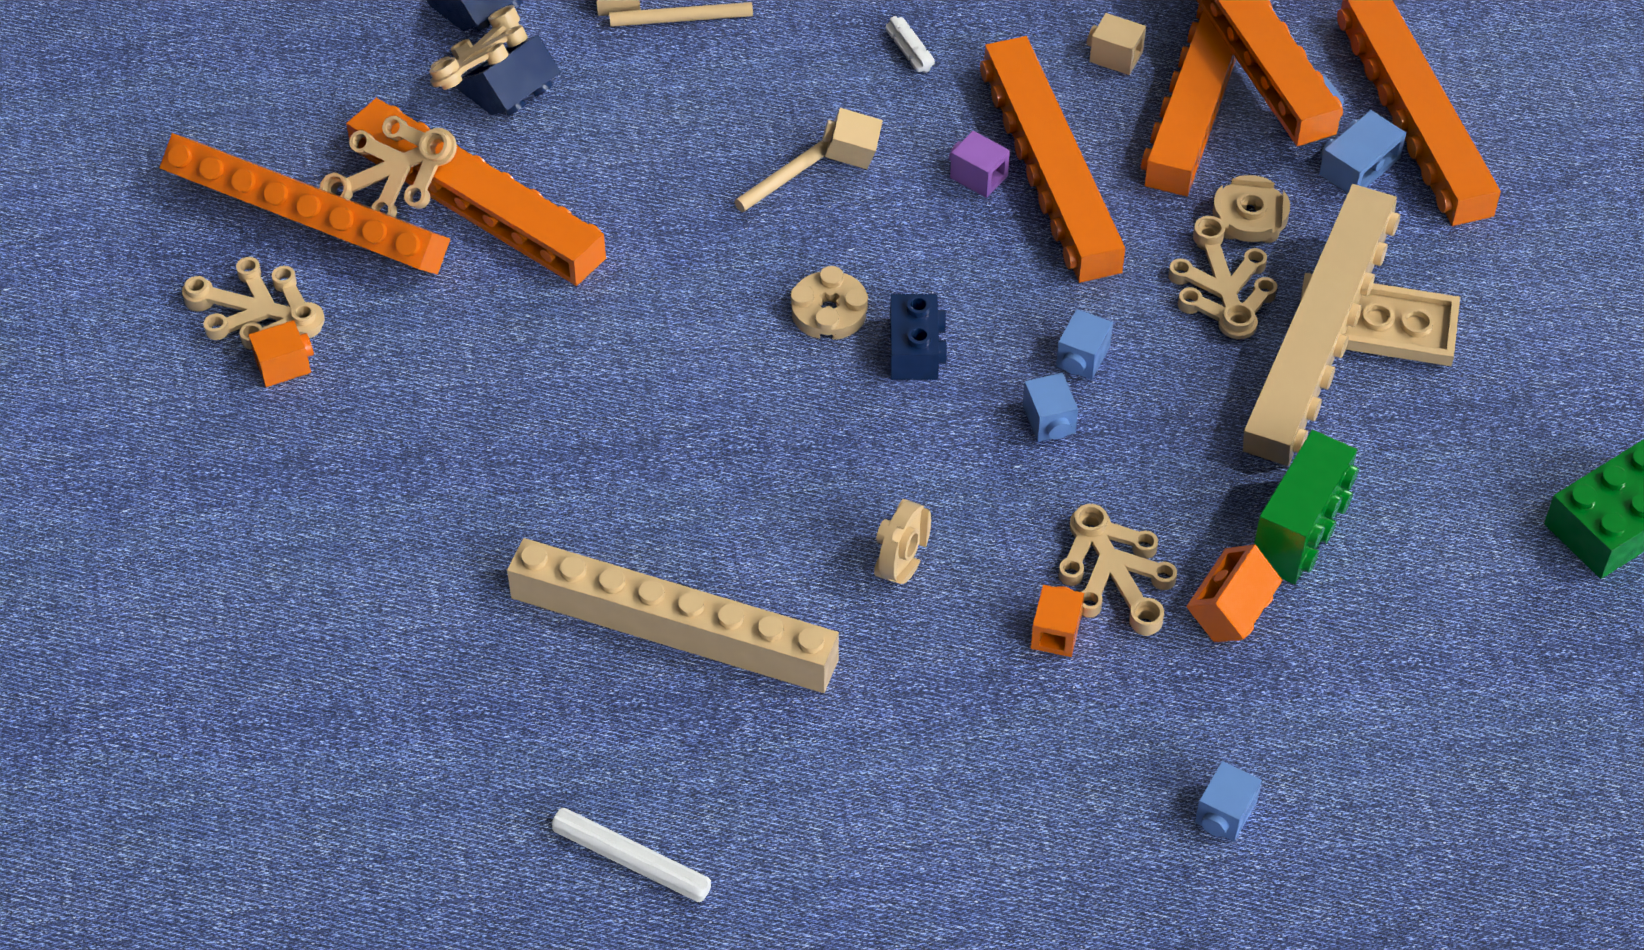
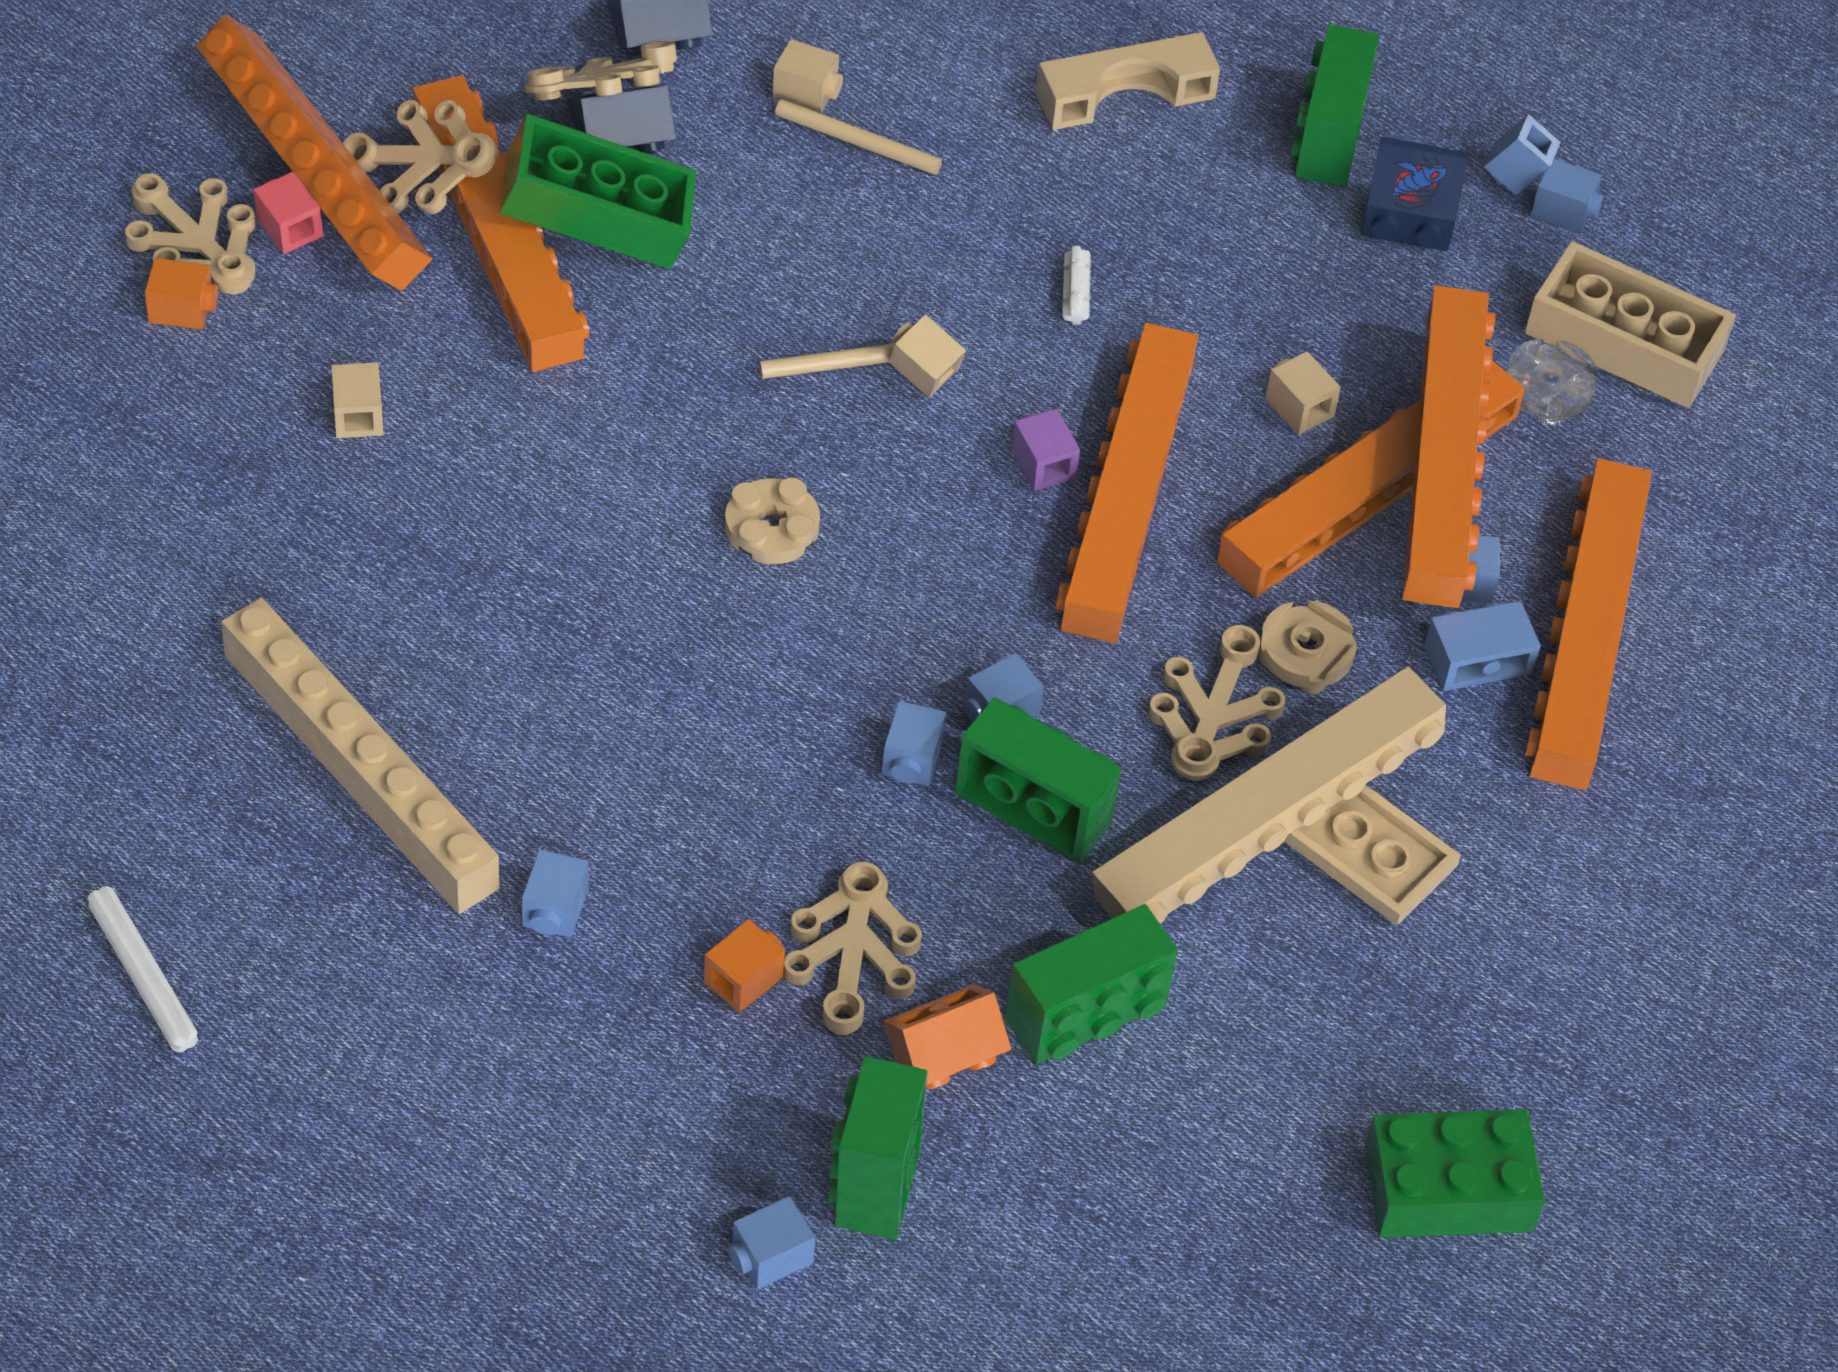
camera: 25 degrees right, 0 degrees up
(317, 256) = (288, 212): none -> coral brick
(472, 365) = (357, 400): none -> tan brick
(543, 132) = (598, 191): none -> green brick
(888, 640) = (555, 893): none -> medium blue brick
(900, 541) = (640, 799): tan plate -> none
(915, 336) = (830, 598): dark blue brick -> none
(1159, 387) = (1037, 779): none -> green brick
(1265, 692) = (877, 1147): none -> green brick

